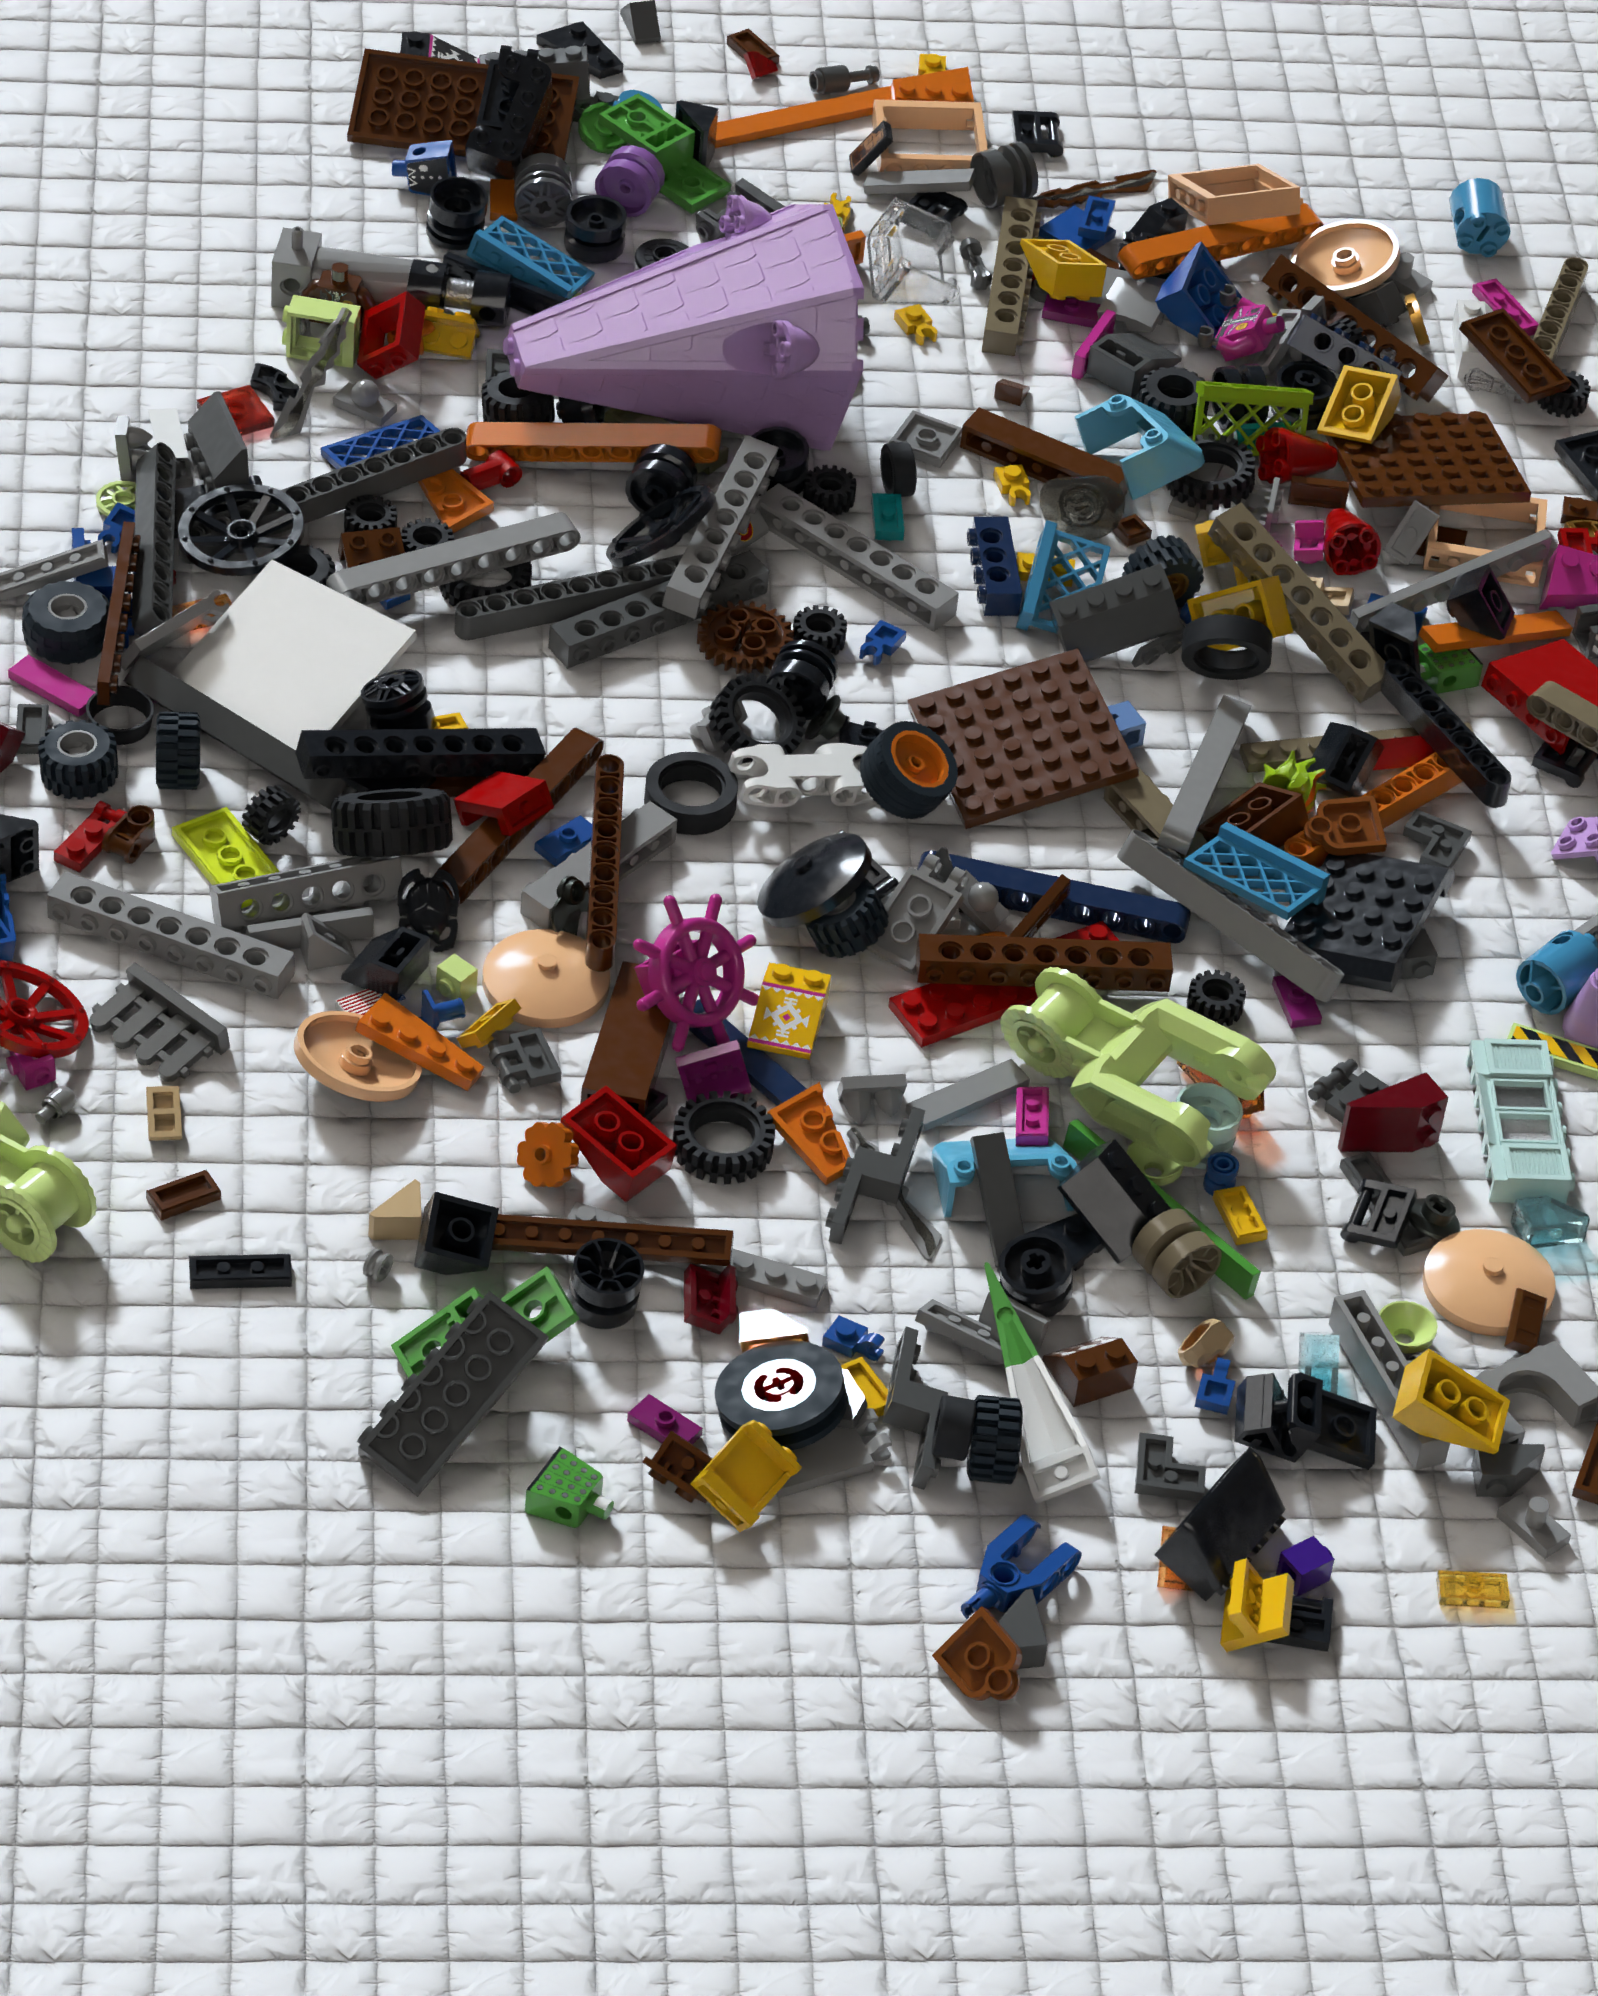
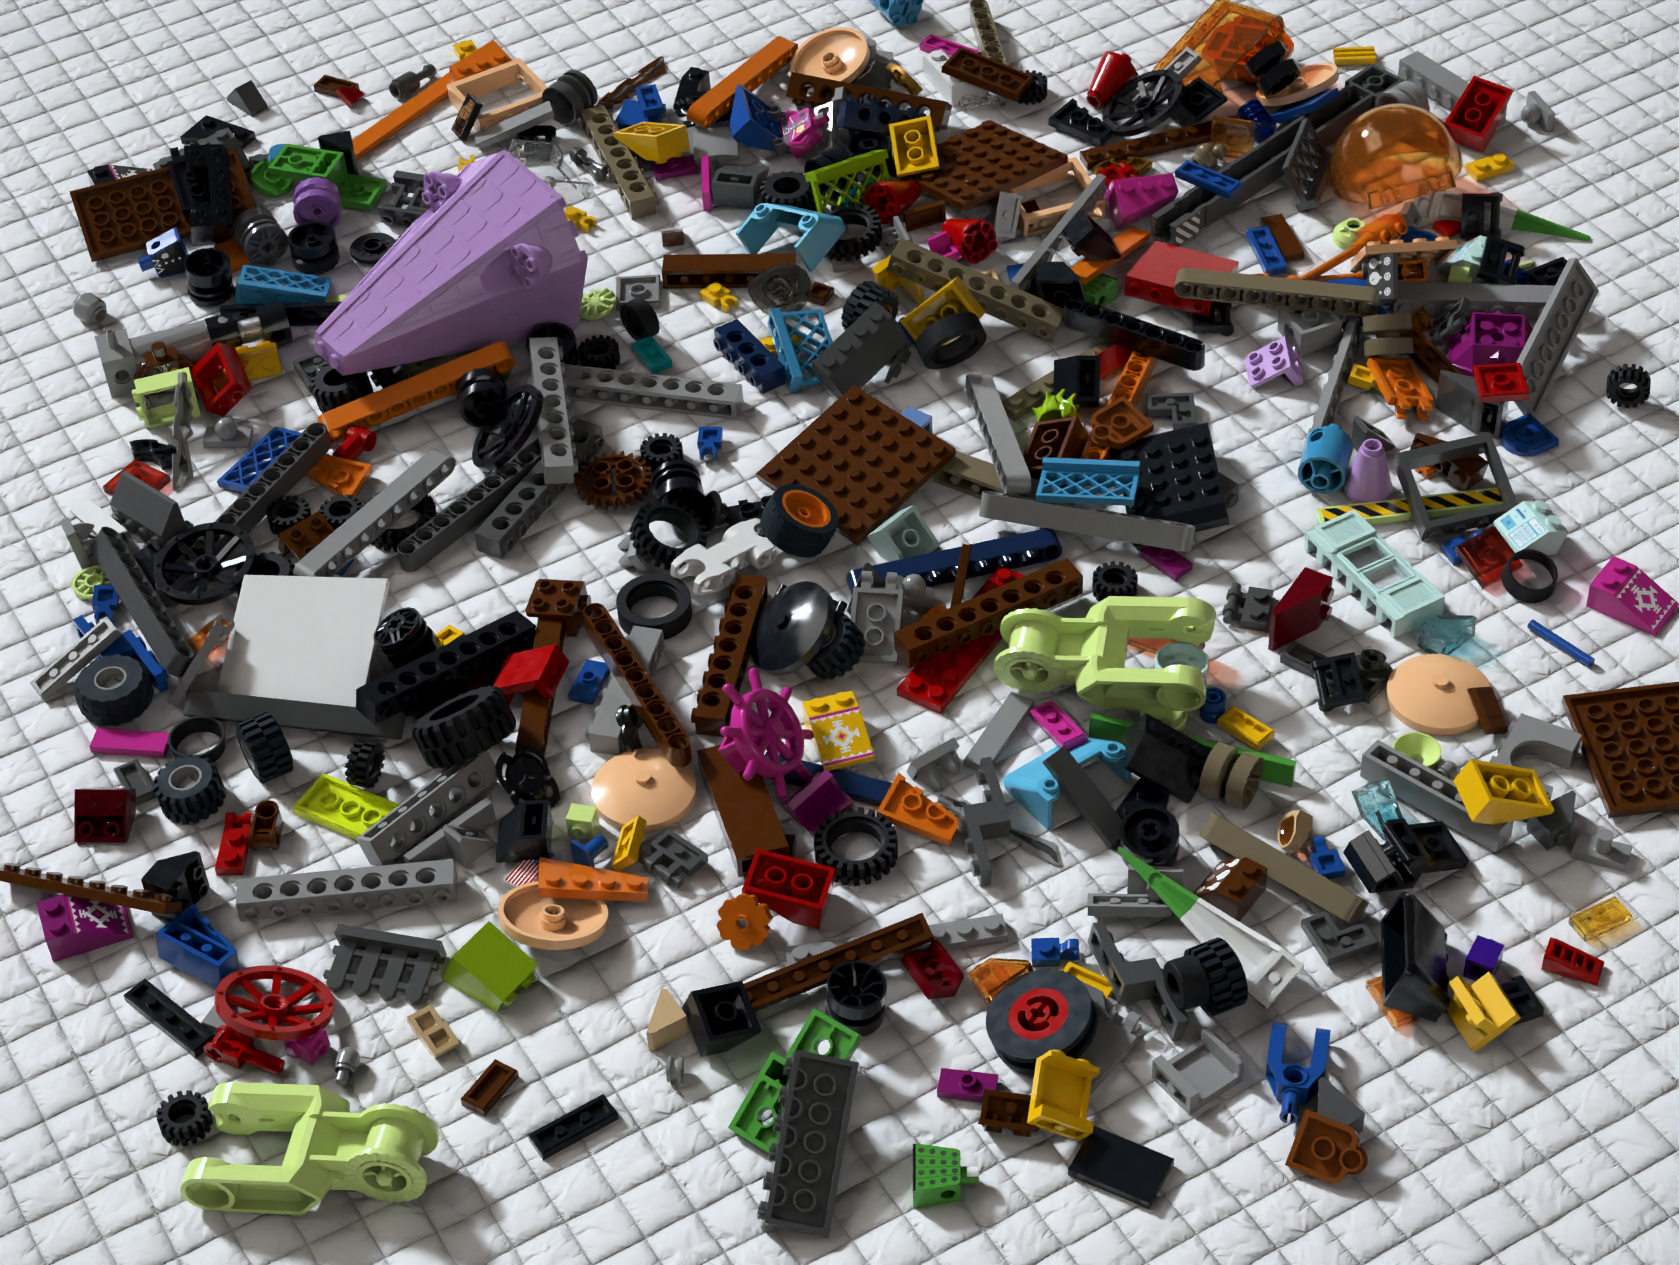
camera: 20 degrees left, 0 degrees up
(118, 621) = (156, 671): reddish brown plate -> none
(259, 1078) = (490, 968): none -> lime slope
(308, 194) = (89, 308): none -> light grey head
(588, 737) = (560, 600): none -> reddish brown bracket
(747, 869) = (730, 654): none -> reddish brown brick
(762, 1575) = (1121, 1167): none -> black tile
(863, 431) = (599, 302): none -> yellowish green wheel
(912, 1527) = (1199, 1072): none -> light grey panel
(1018, 841) = (903, 536): none -> light aqua slope
(1027, 129) = (560, 61): black plate -> none
(1161, 1374) = (1285, 869): none -> dark tan beam
(1234, 194) = (751, 41): light nougat window -> none
(1394, 1595) = (1559, 951): none -> red slope

